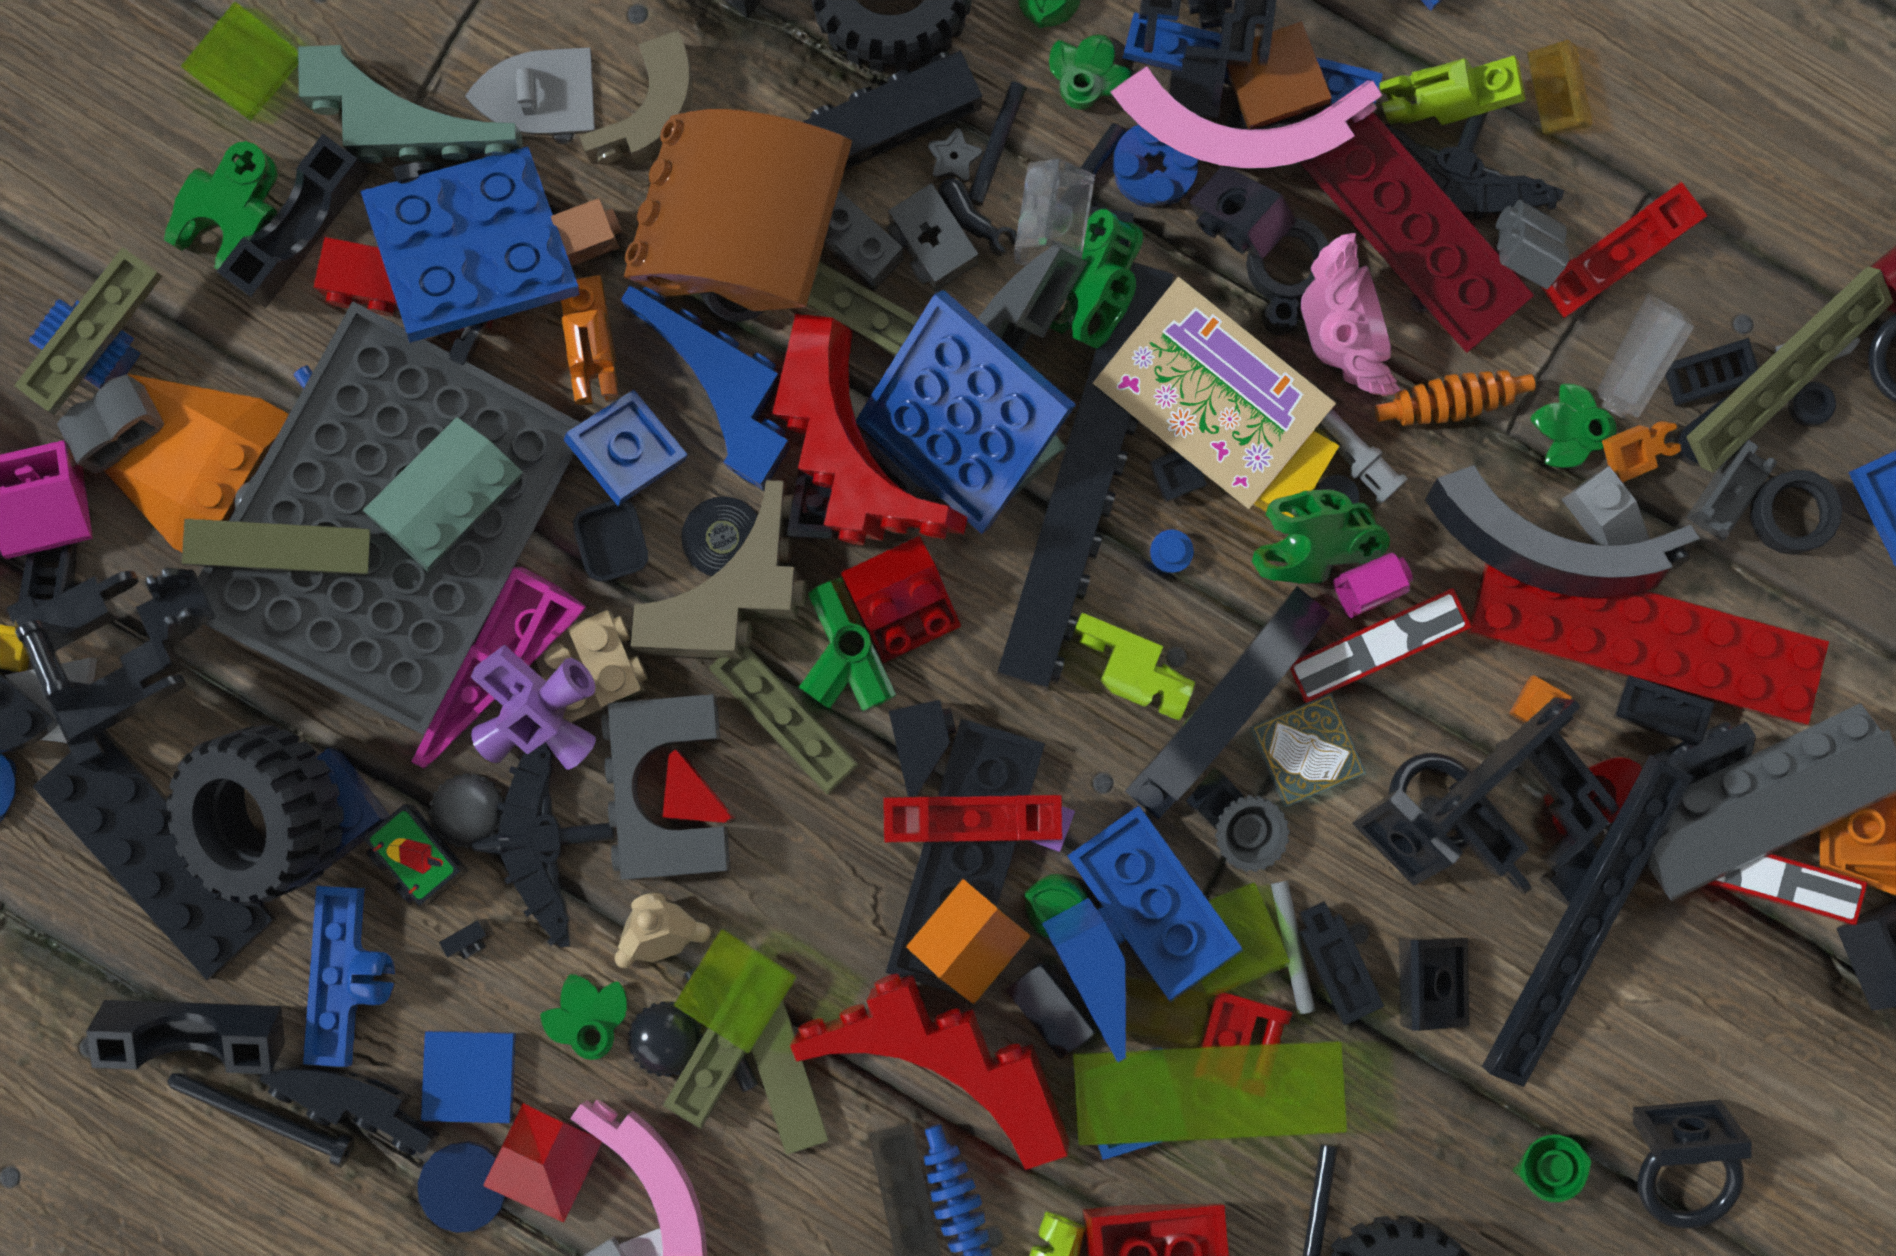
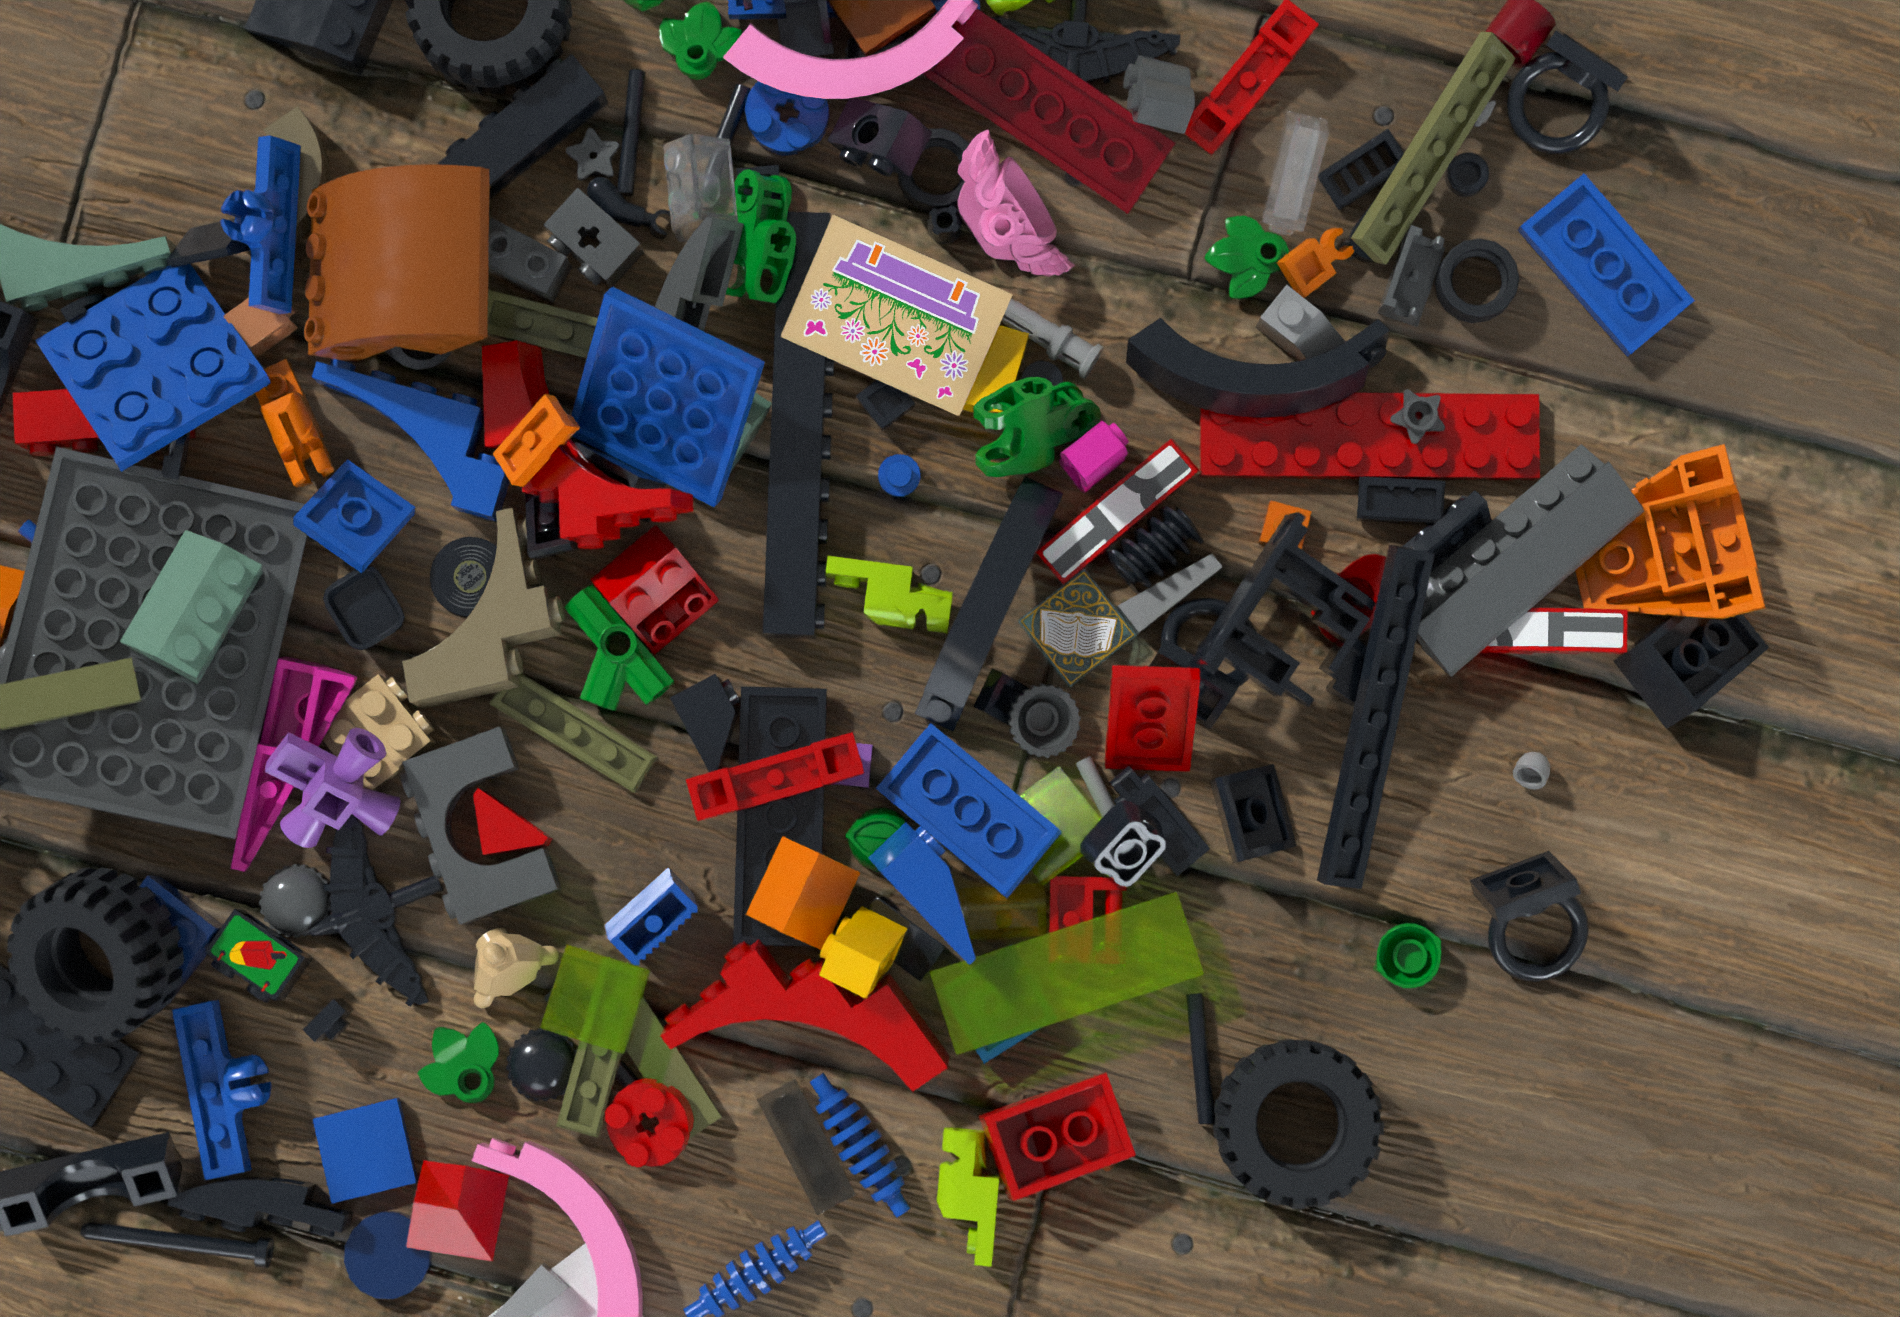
camera: 15 degrees left, 0 degrees up
(539, 92) = (176, 196): light grey shield -> none
(561, 141) = (204, 244): none -> black slope
(619, 137) = (268, 223): none -> blue plate
(739, 1146) = (639, 1144): none -> red plate
(812, 924) = (651, 916): none -> blue brick
(824, 421) = (535, 440): none -> orange hinge
(1011, 1016) = (861, 951): none -> yellow brick
(1302, 979) = (1124, 843): none -> black piece
(1363, 861) = (1151, 718): none -> red plate
(1395, 744) = (1157, 600): none -> light grey piece
(1406, 690) = (1154, 547): none -> black piece
(1455, 397) = (1128, 258): orange piece -> none
(1716, 627) = (1427, 407): none -> dark grey plate
(1725, 1015) = (1532, 770): none -> light grey hinge

